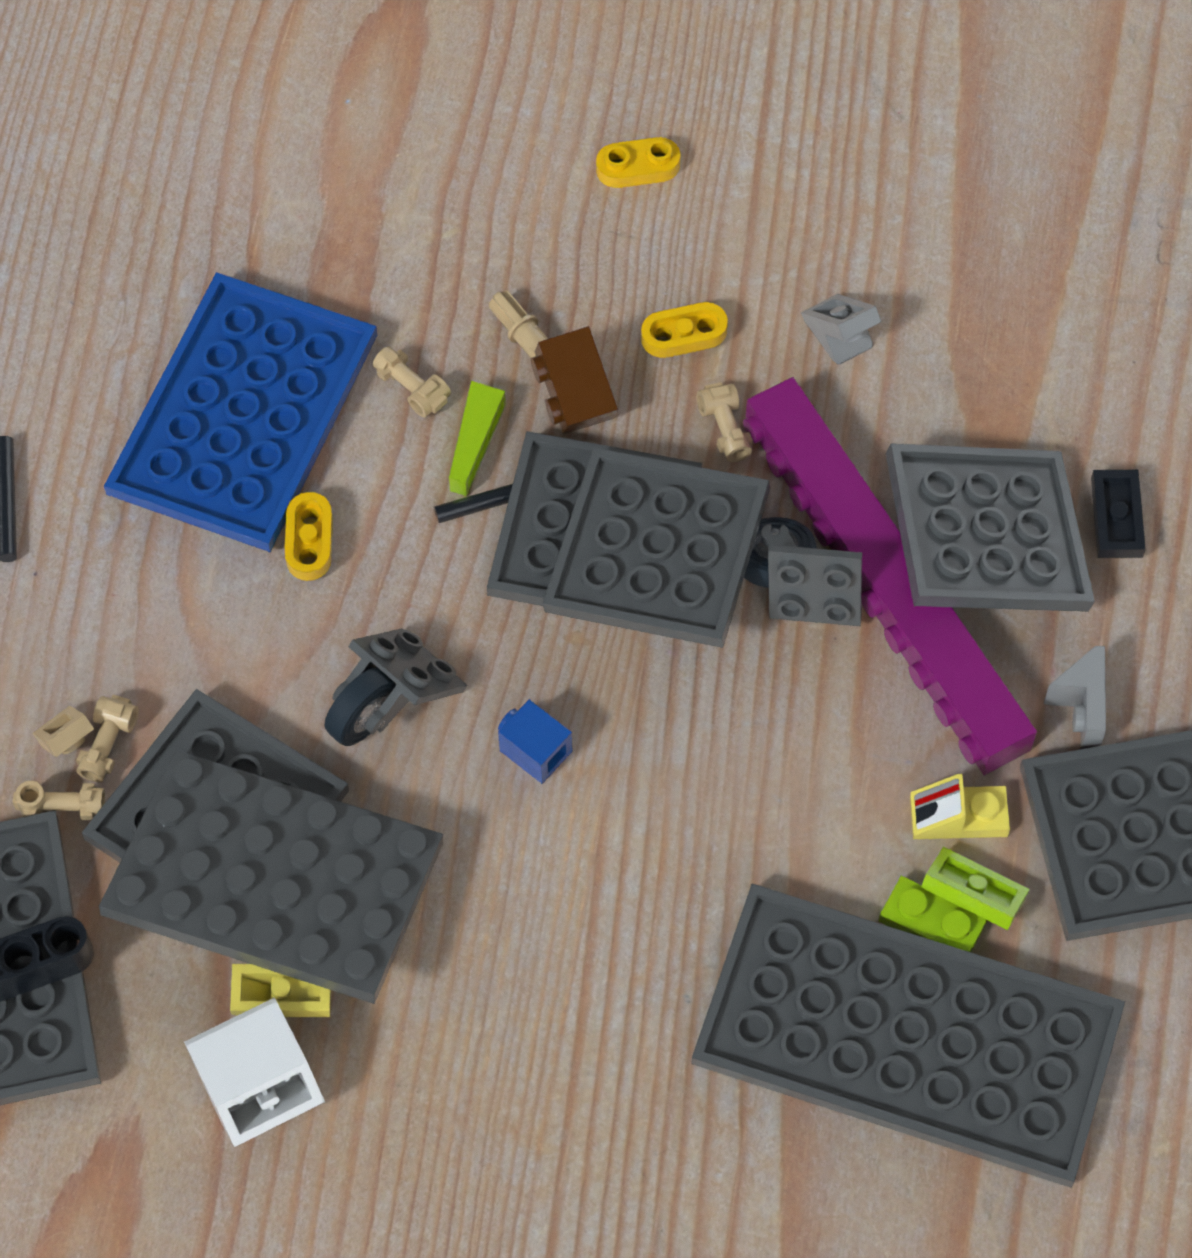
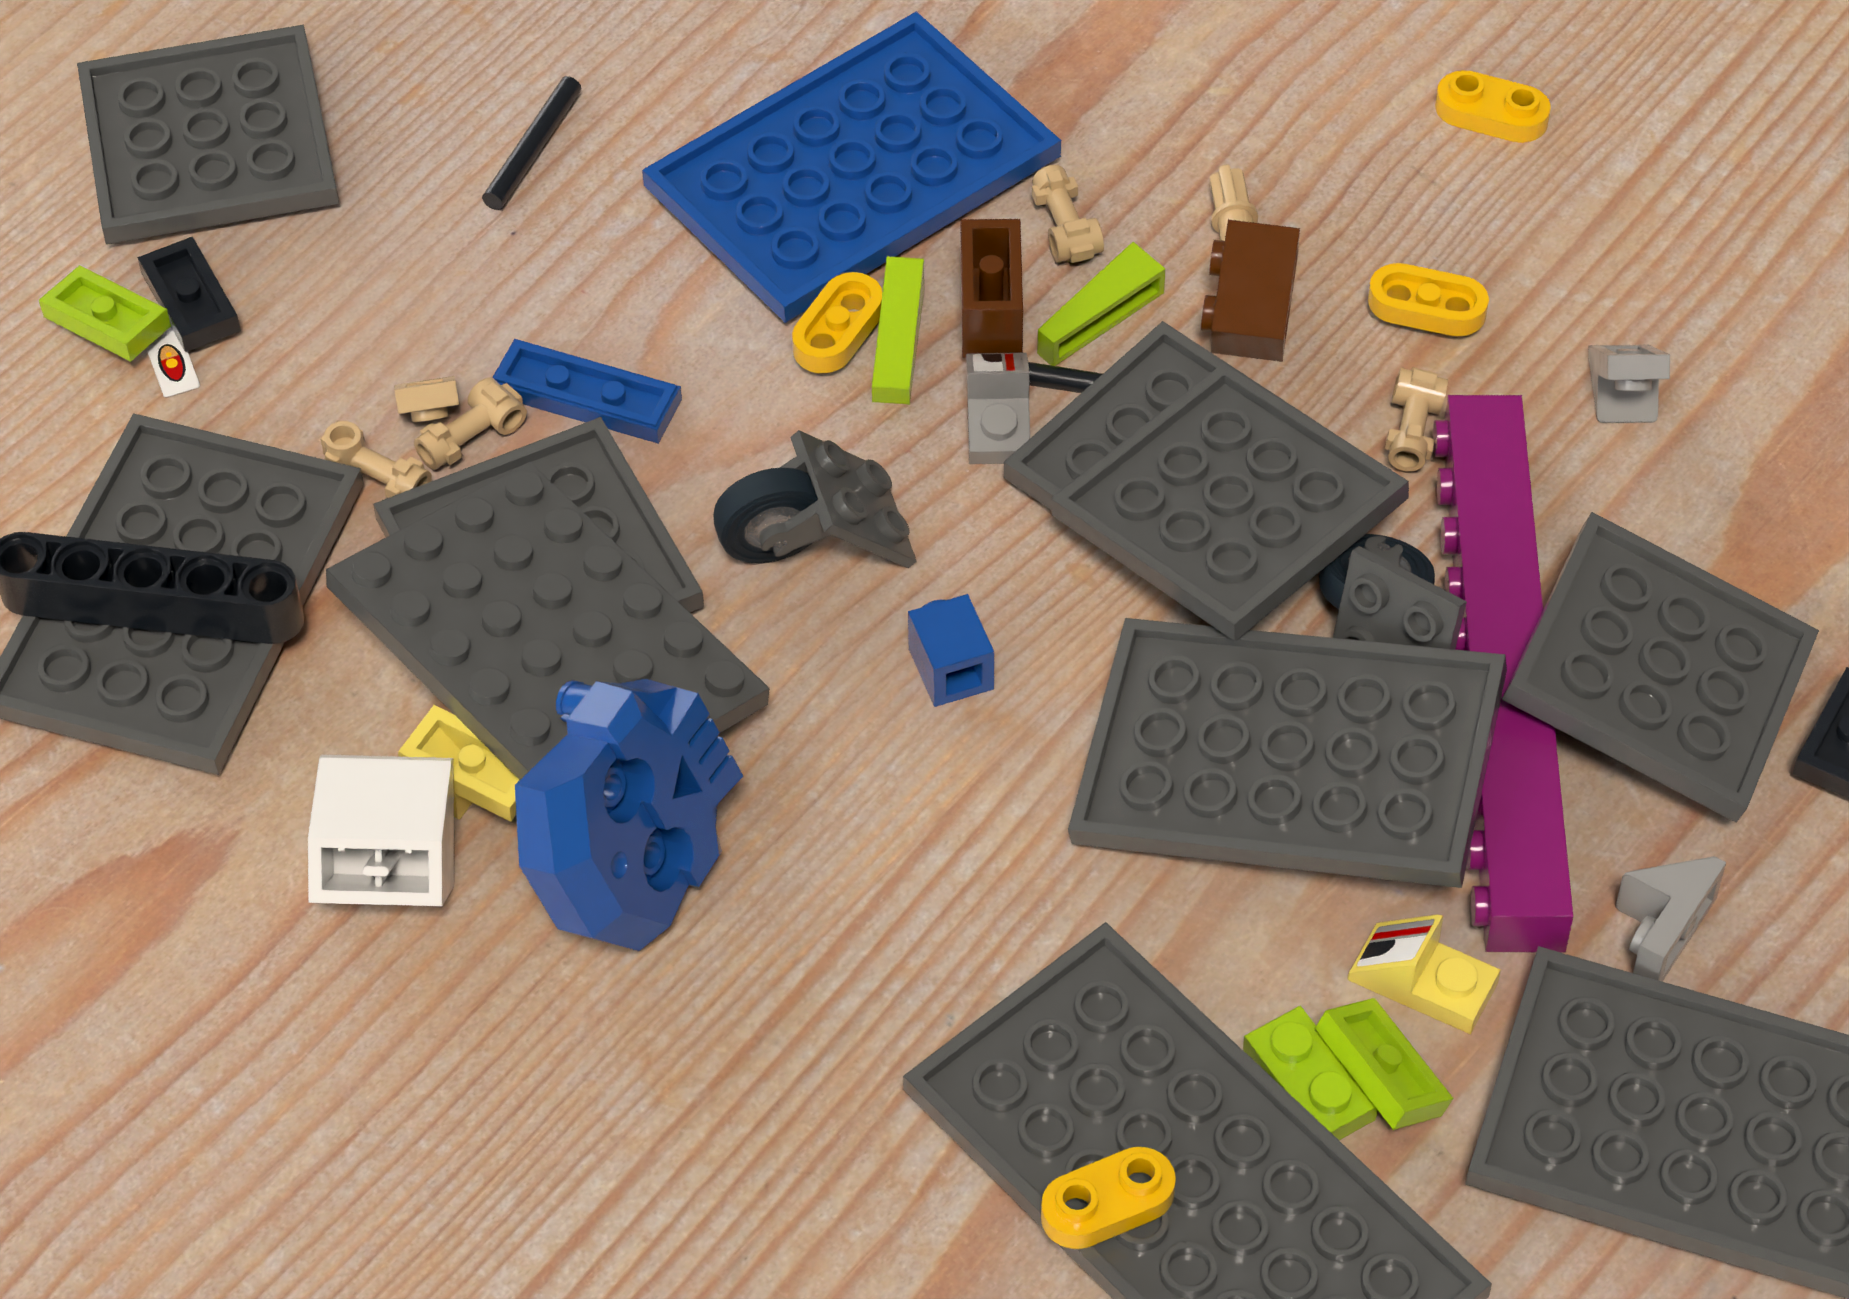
camera: 30 degrees right, 10 degrees down
(167, 669) = (589, 390): none -> blue tile
(352, 522) = (898, 330): none -> lime piece
(402, 463) = (991, 286): none -> reddish brown brick
(415, 974) = (623, 809): none -> blue brick
(453, 545) = (997, 405): none -> light grey slope
(798, 706) = (1291, 752): none -> dark grey plate
(871, 1069) = (1112, 1197): none -> yellow plate

